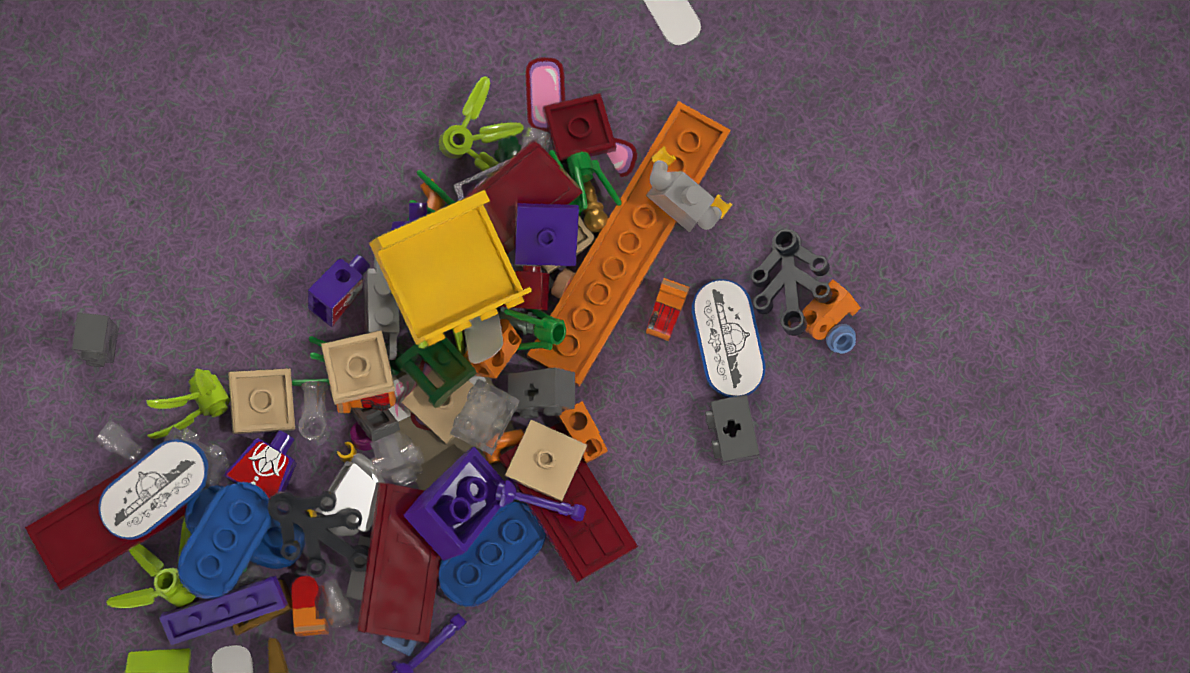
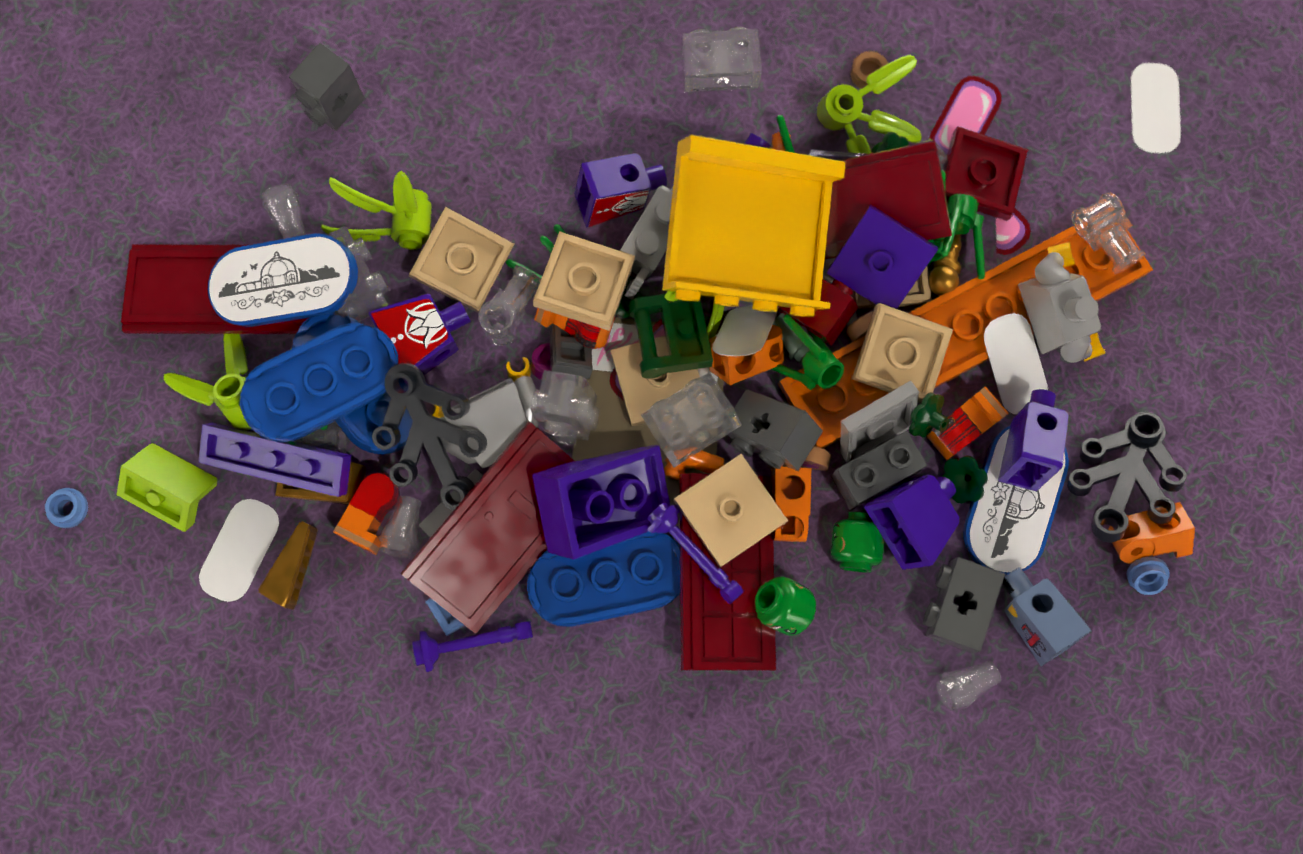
camera: 30 degrees right, 0 degrees up
(353, 155) = (721, 59): none -> clear brick
(457, 97) = (864, 65): none -> medium nougat tile
(583, 392) = (817, 459): none -> medium nougat tile
(597, 289) = (901, 350): none -> tan plate
(608, 344) = (878, 422): none -> light grey plate
(618, 501) = (785, 606): none -> green head
(627, 375) = (878, 470): none -> dark grey brick
(638, 320) = (928, 416): none -> dark green plant
(642, 431) = (857, 543): none -> green head
(669, 393) = (915, 519): none -> dark purple torso
(676, 248) = (1014, 360): none -> white sticker
(685, 123) = (1108, 230): none -> clear connector
(686, 347) = (966, 477): none -> dark green plant
(716, 296) = (1035, 443): none -> dark purple torso
(765, 481) = (964, 686): none -> clear cone
(796, 415) = (1053, 627): none -> sand blue torso

